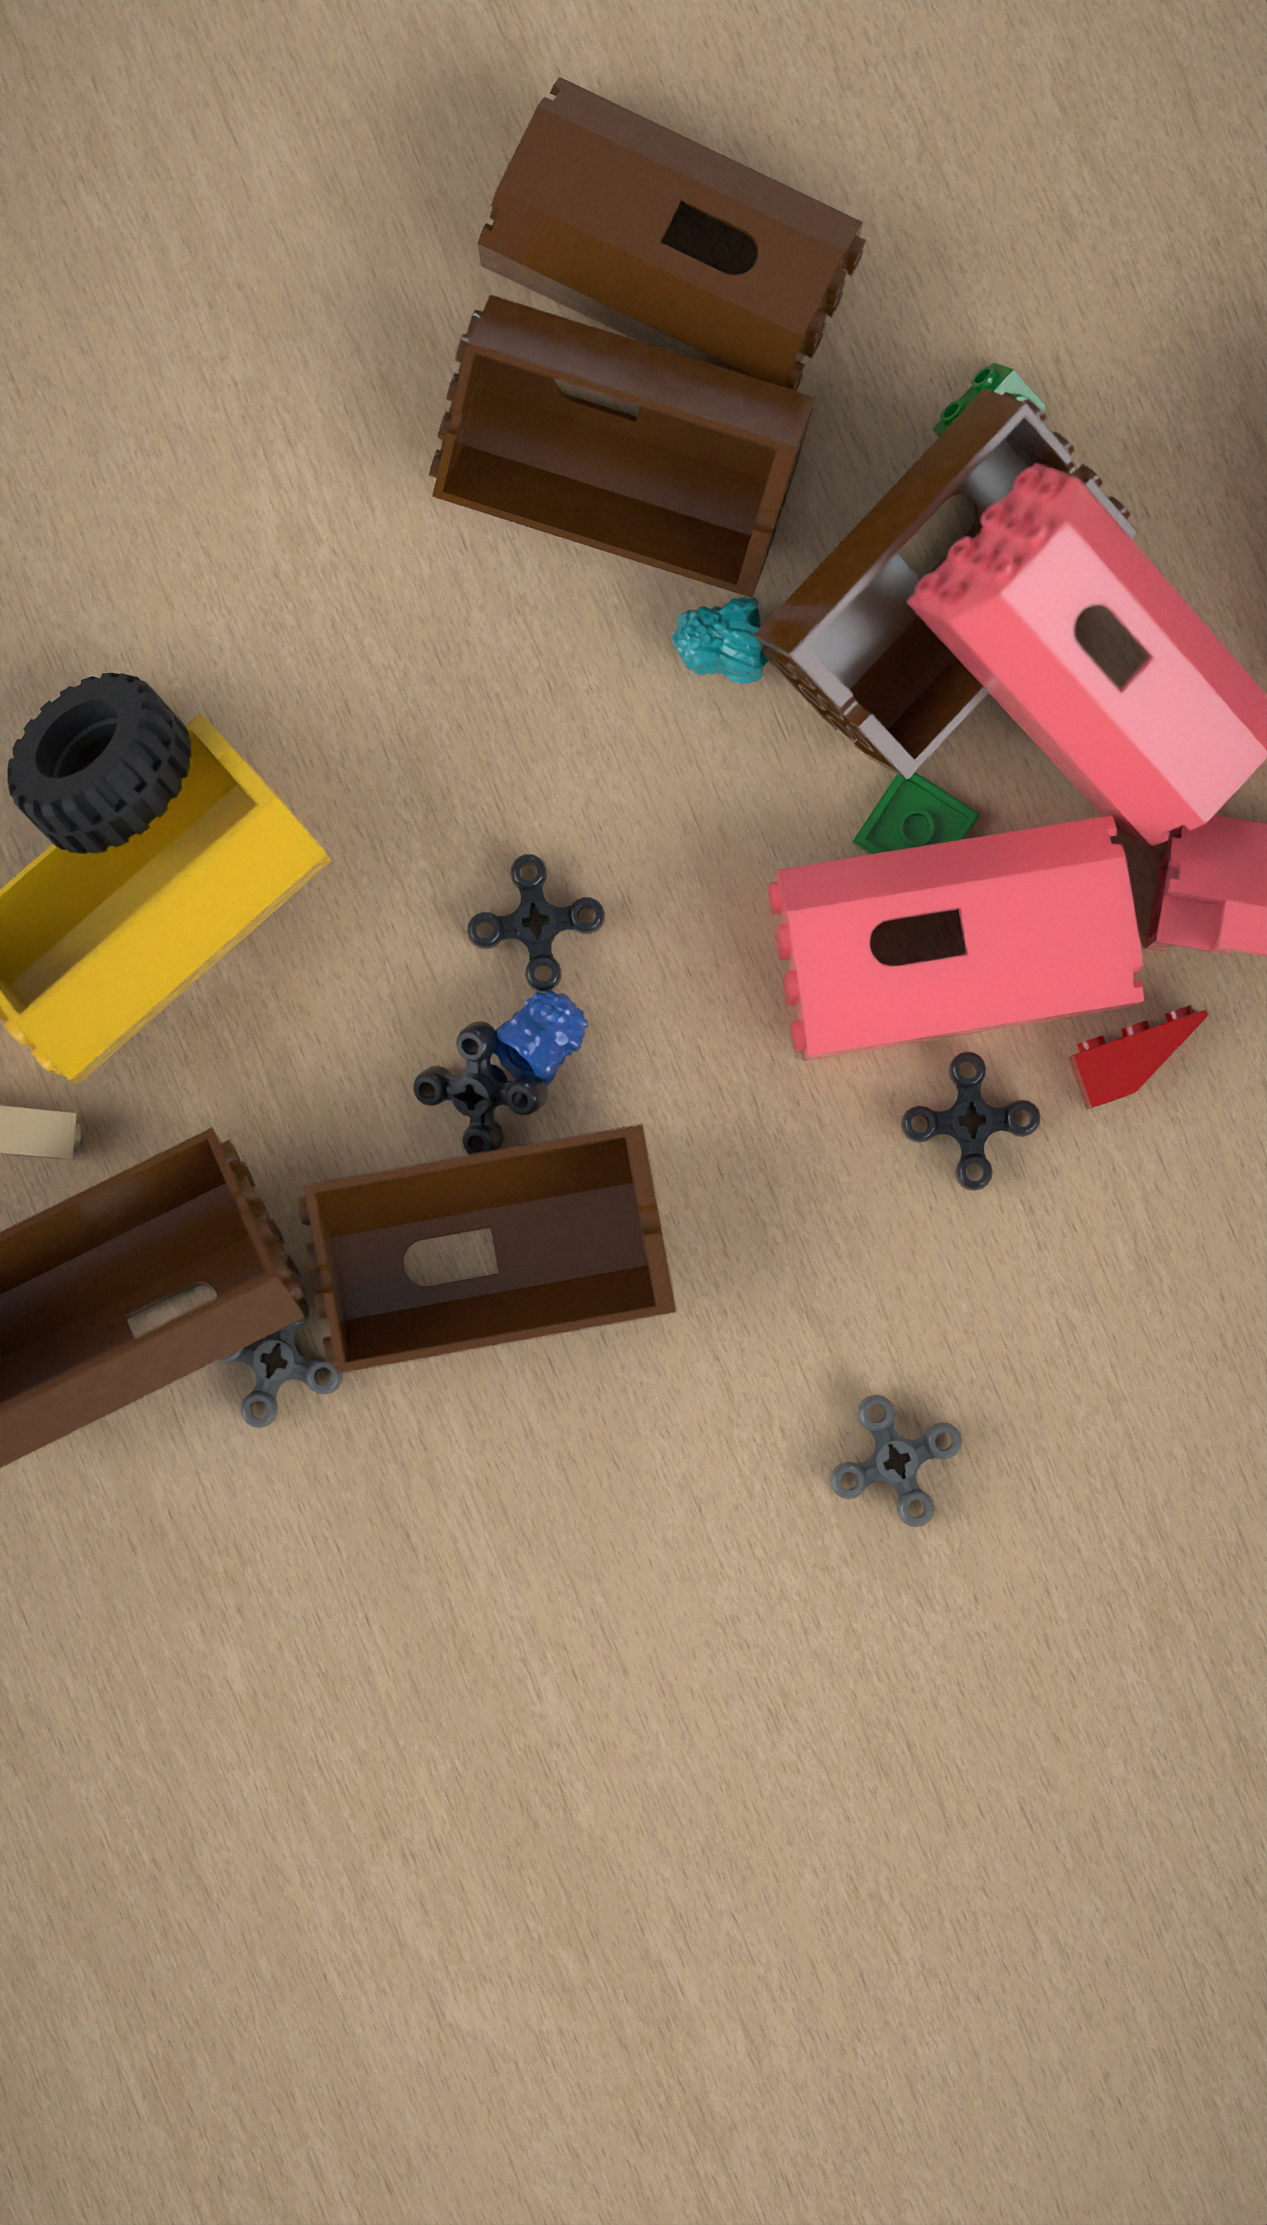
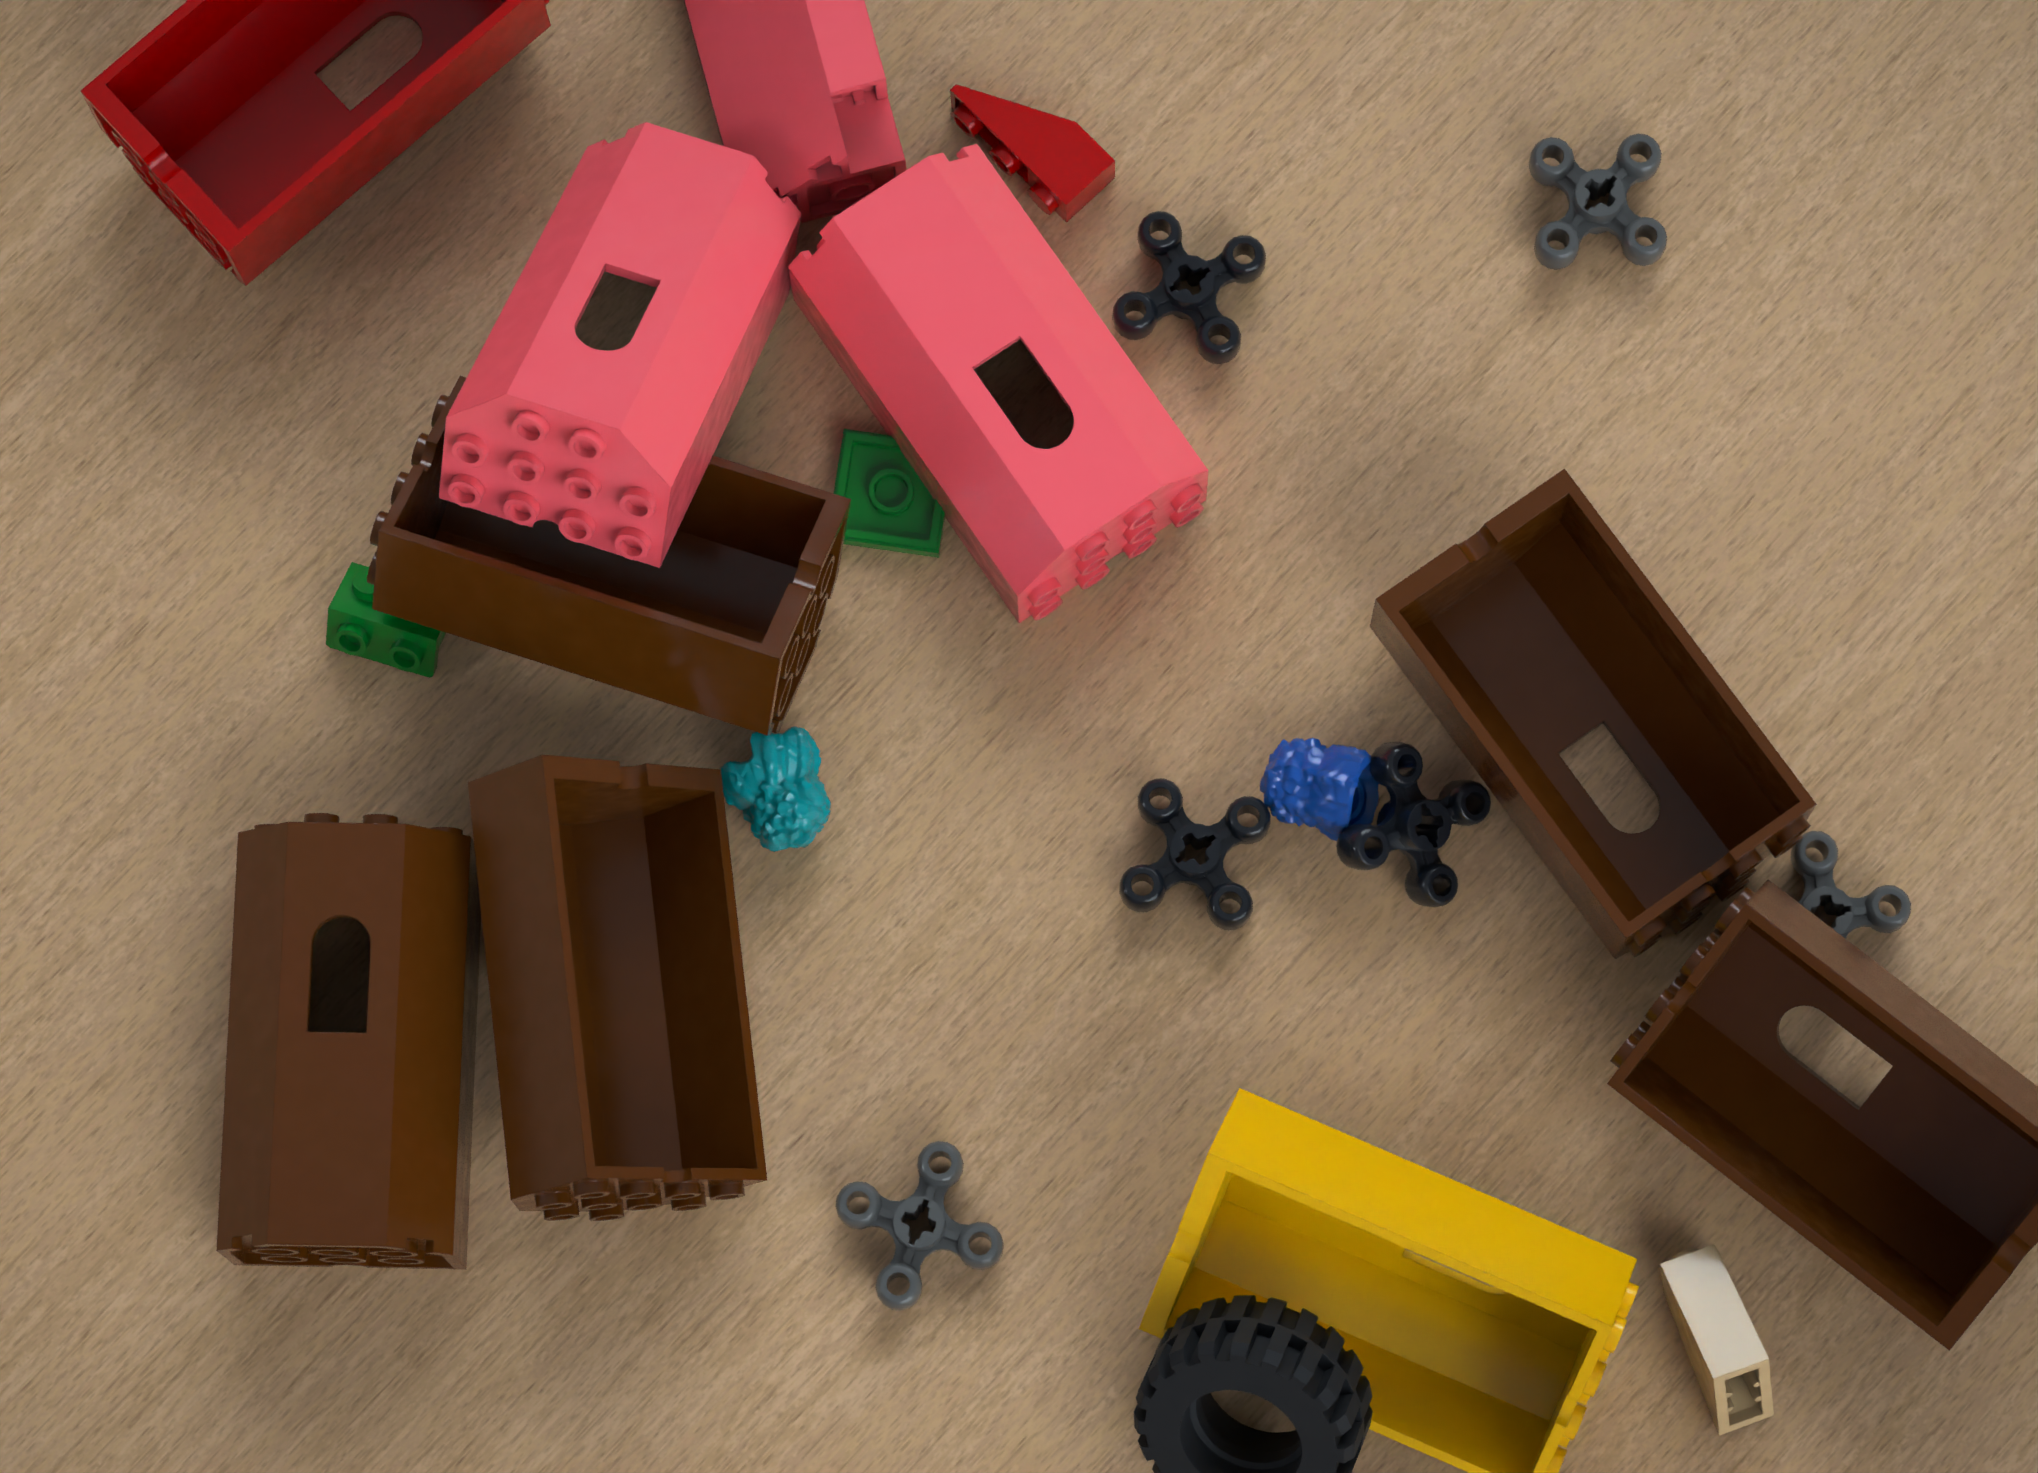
camera: 115 degrees left, 10 degrees down
(340, 614) = (892, 1217): none -> dark grey gear

